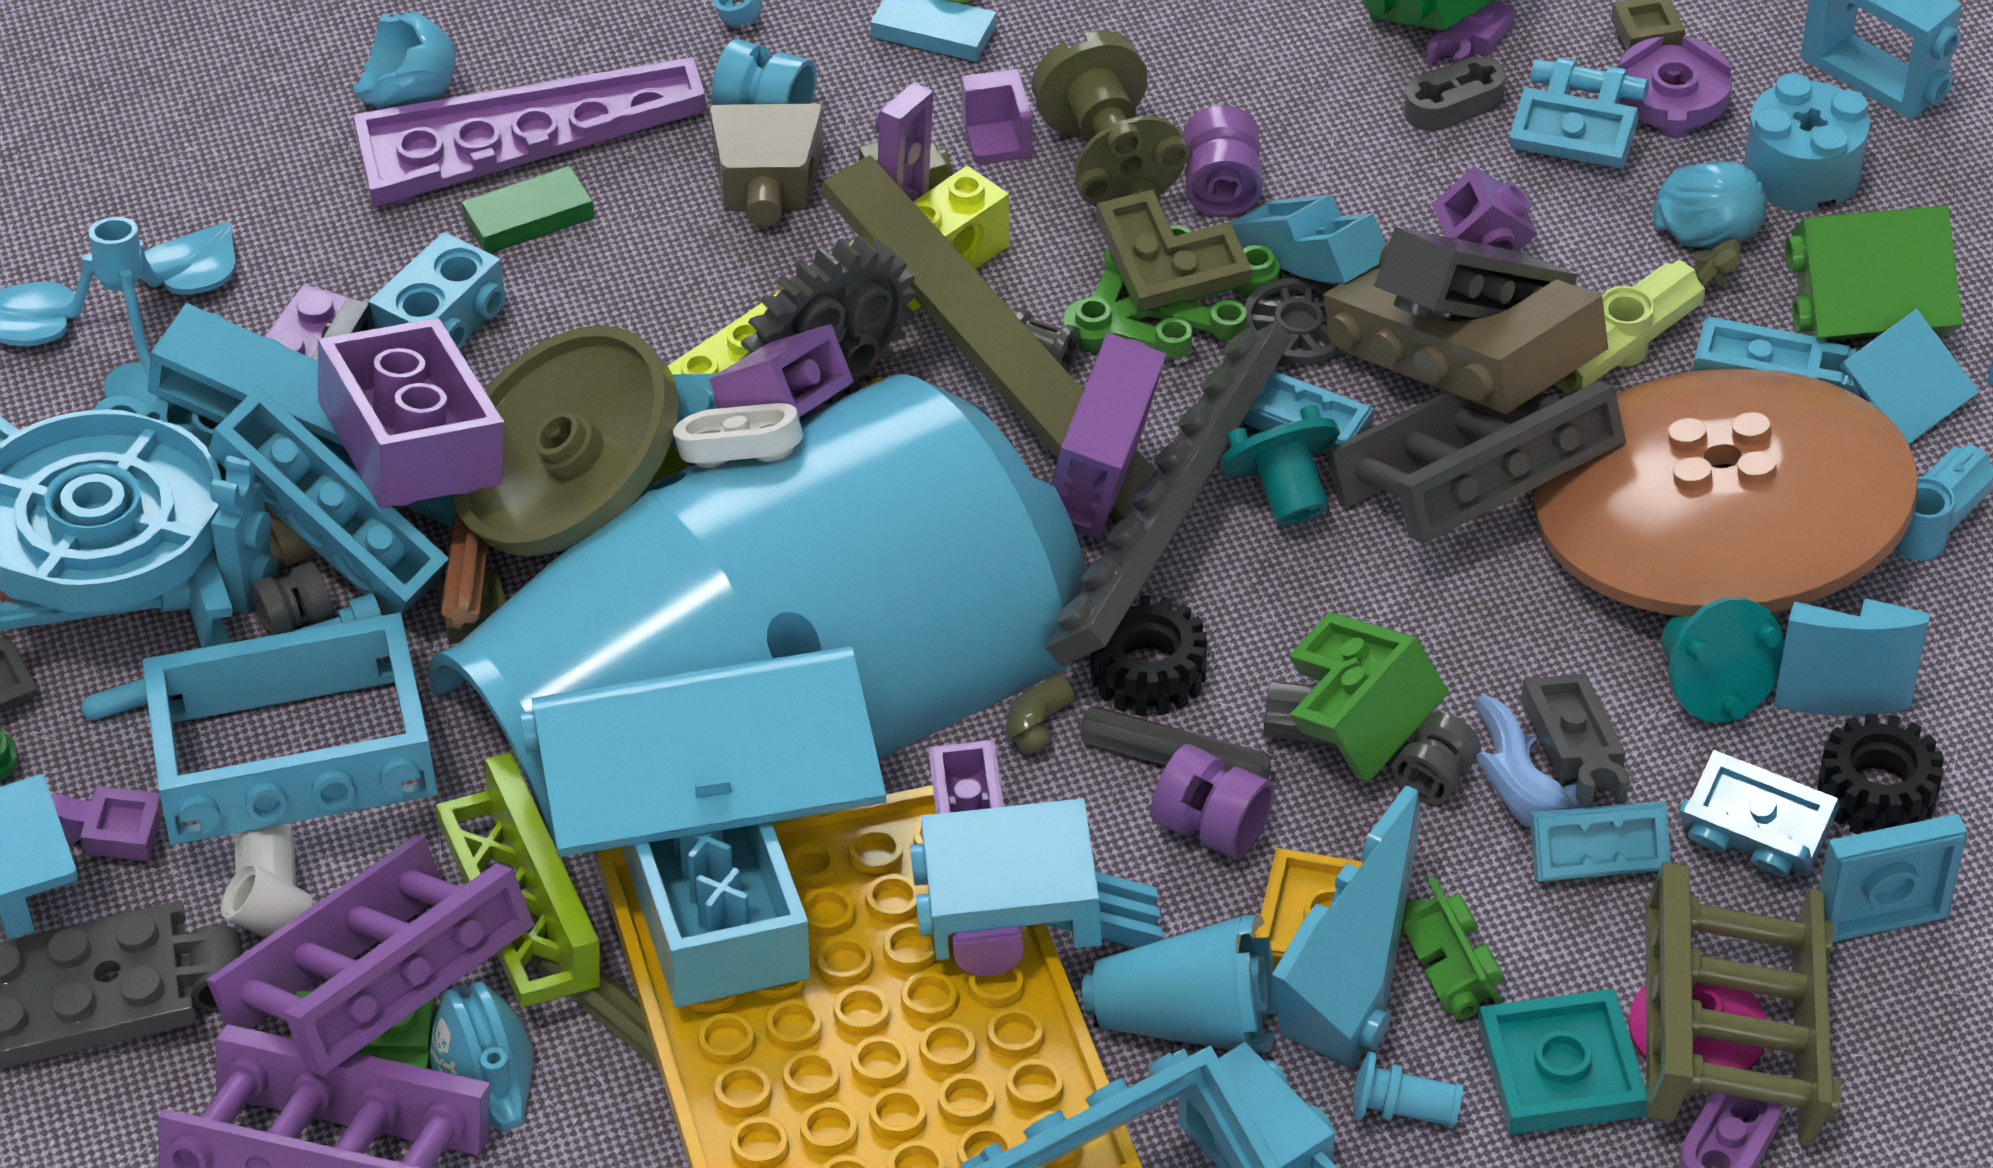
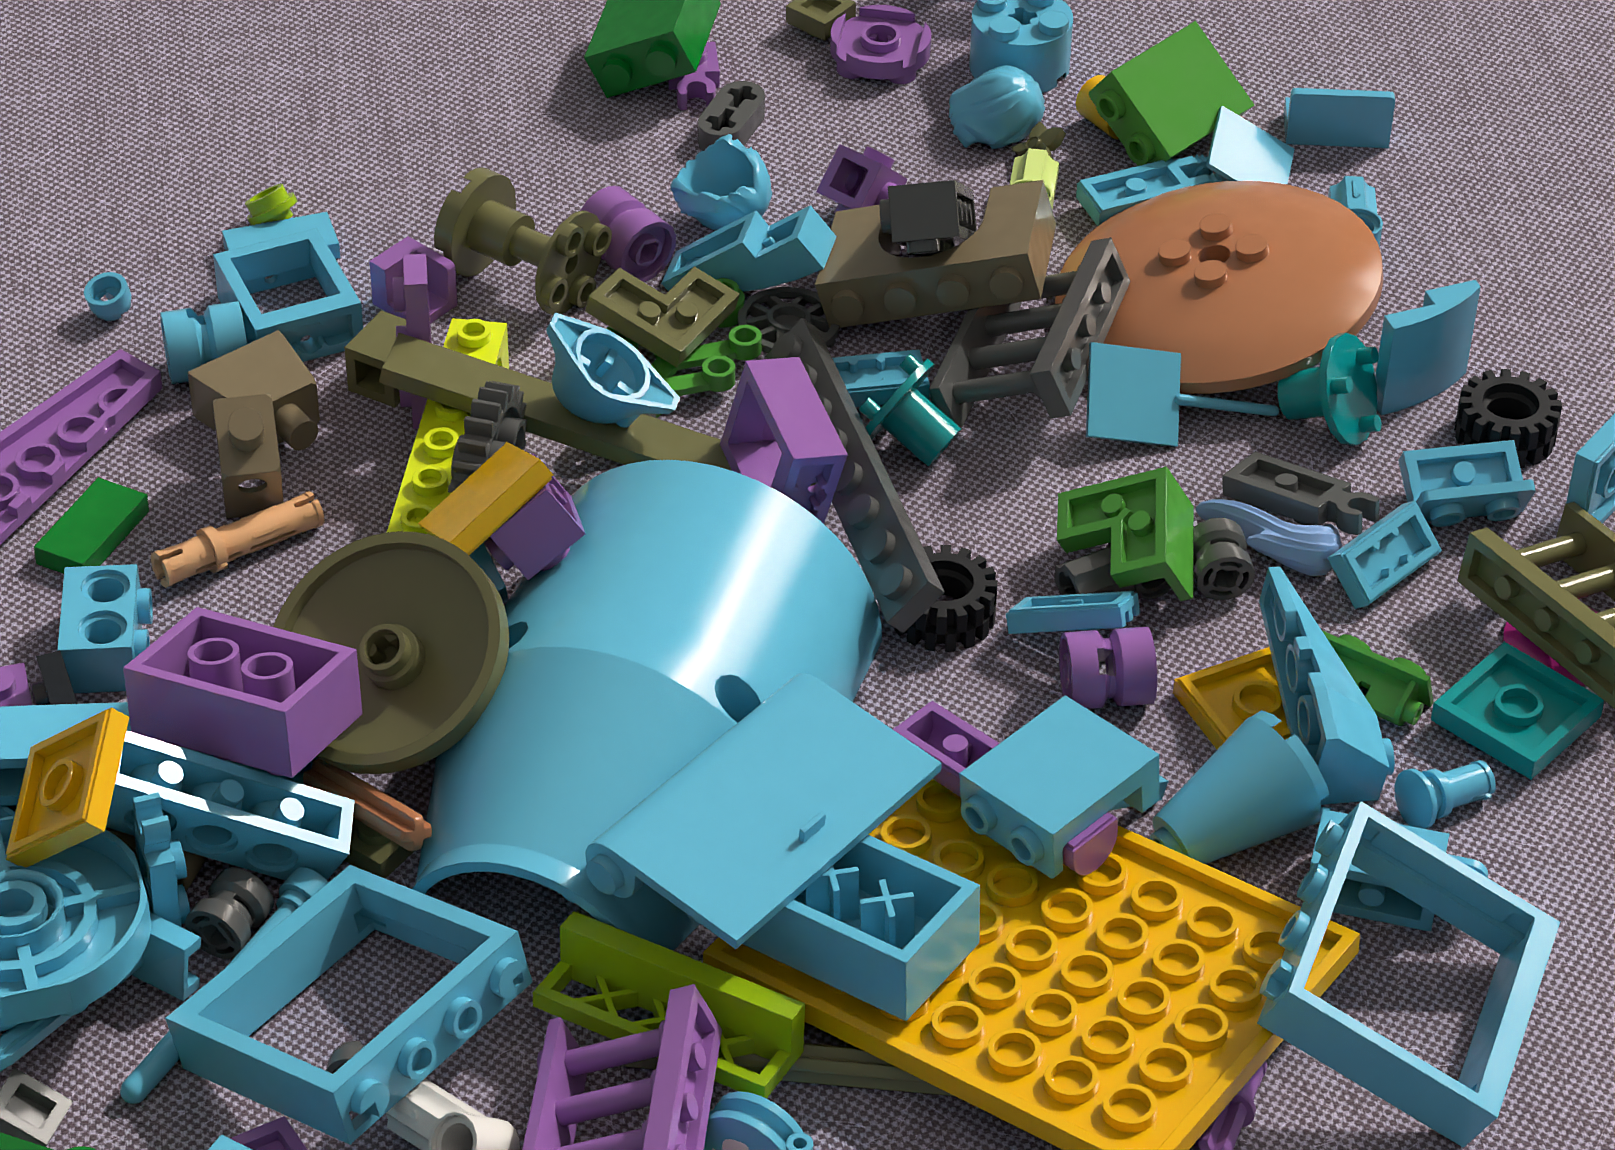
camera: 40 degrees left, 5 degrees down
(195, 419) = (67, 788): none -> yellow tile
(632, 280) = (220, 545): none -> light nougat pin
(679, 205) = (248, 452): none -> dark tan torso
(738, 433) = (553, 565): white plate -> none
(743, 345) = (487, 498): none -> yellow tile
(873, 37) = (290, 259): none -> medium azure window
(1000, 279) = (604, 375): none -> medium azure hat
(1034, 706) = (899, 683): olive arm -> none
(1160, 742) = (1004, 657): dark grey axle -> none
(1235, 732) = (1073, 612): none -> medium azure tile
(1353, 157) = (723, 184): none -> medium azure hair
(1524, 559) = (1138, 396): none -> medium azure piece
(1578, 126) = (846, 99): medium azure plate -> none

